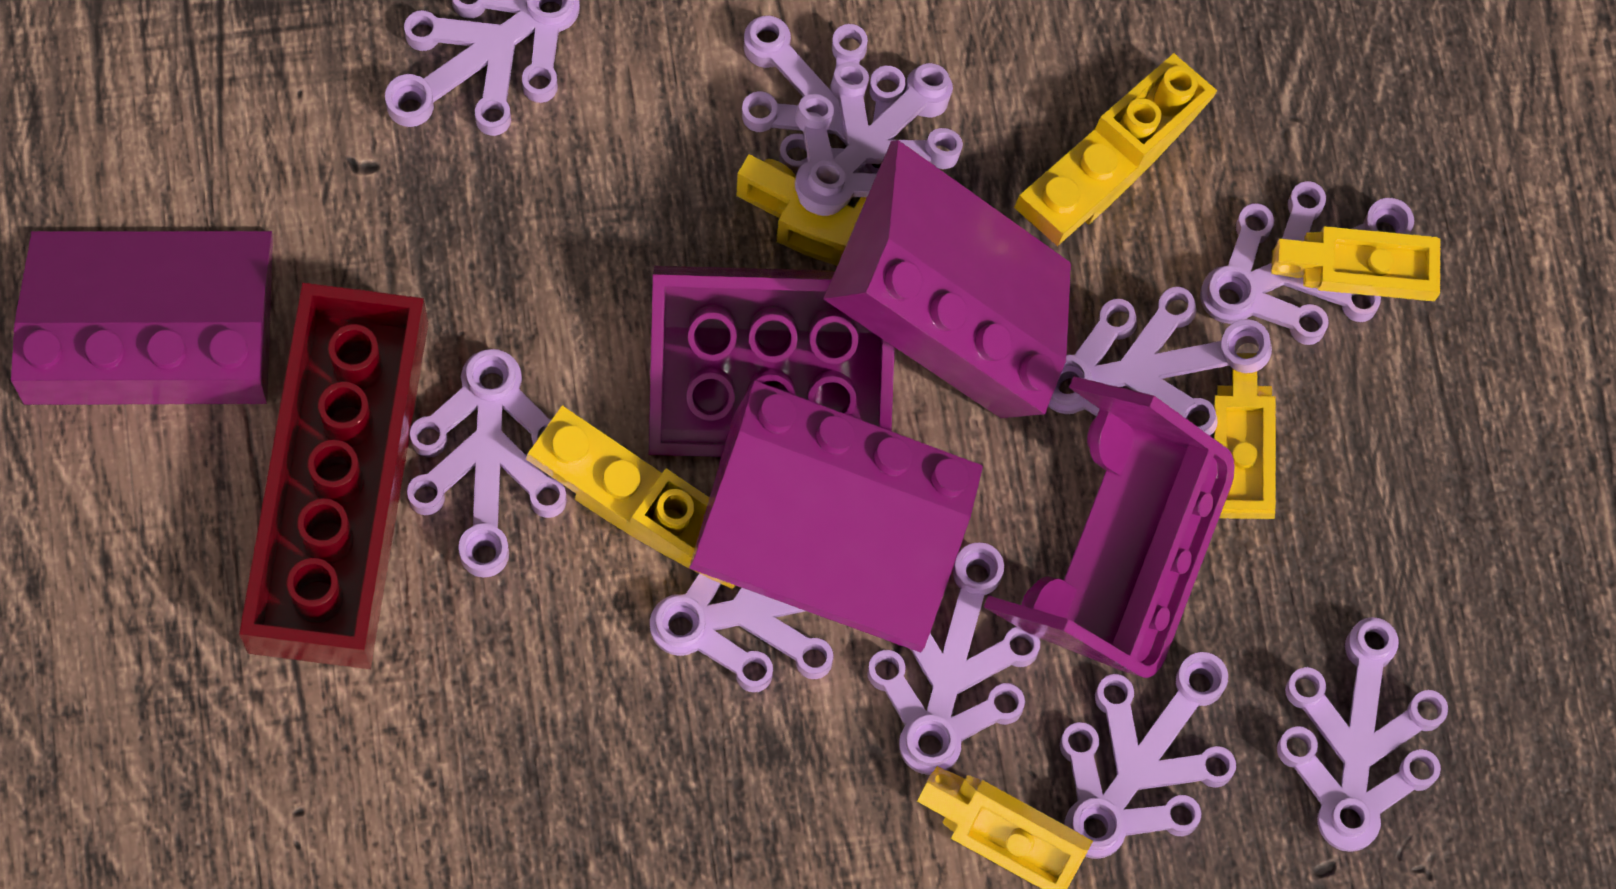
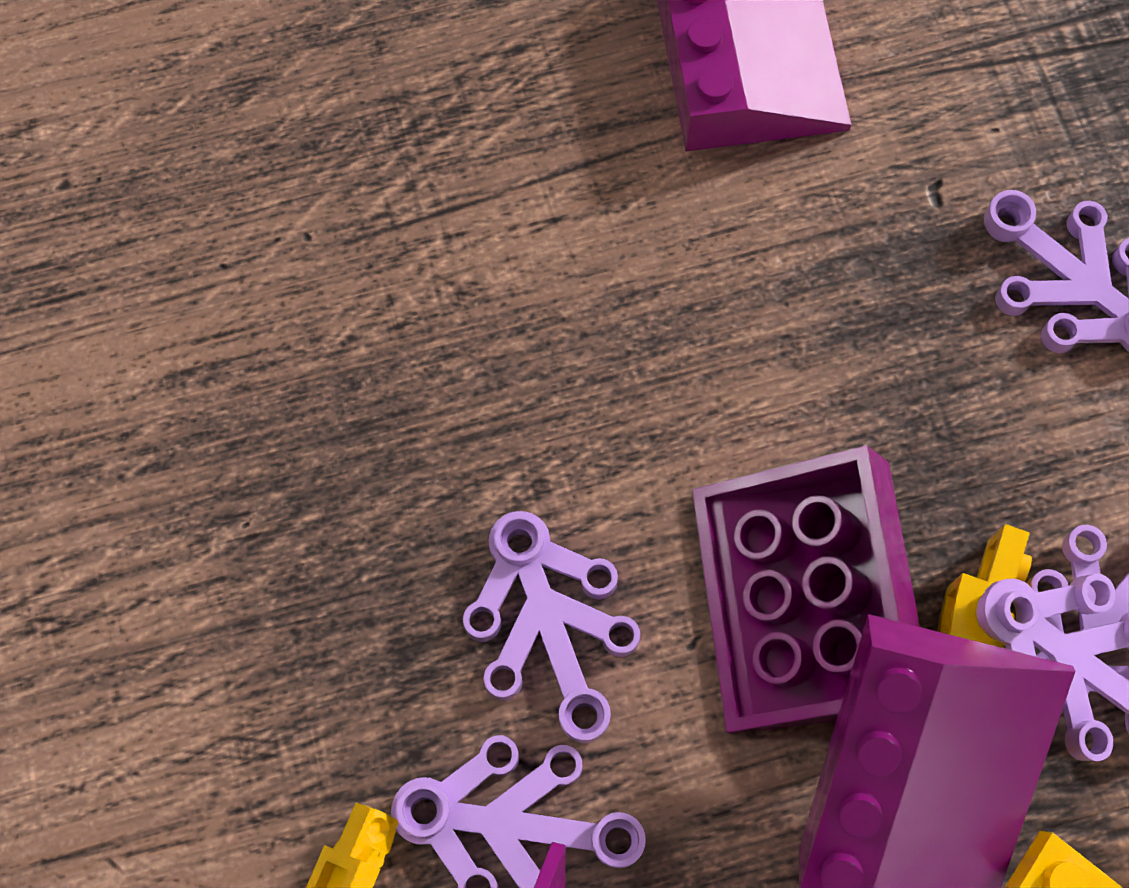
camera: 90 degrees right, 0 degrees up
(335, 476) = (616, 202): dark red brick -> none
(487, 451) = (666, 340): lavender plant -> none
(622, 487) = (637, 487): yellow slope -> none
(836, 516) = (639, 674): magenta slope -> none

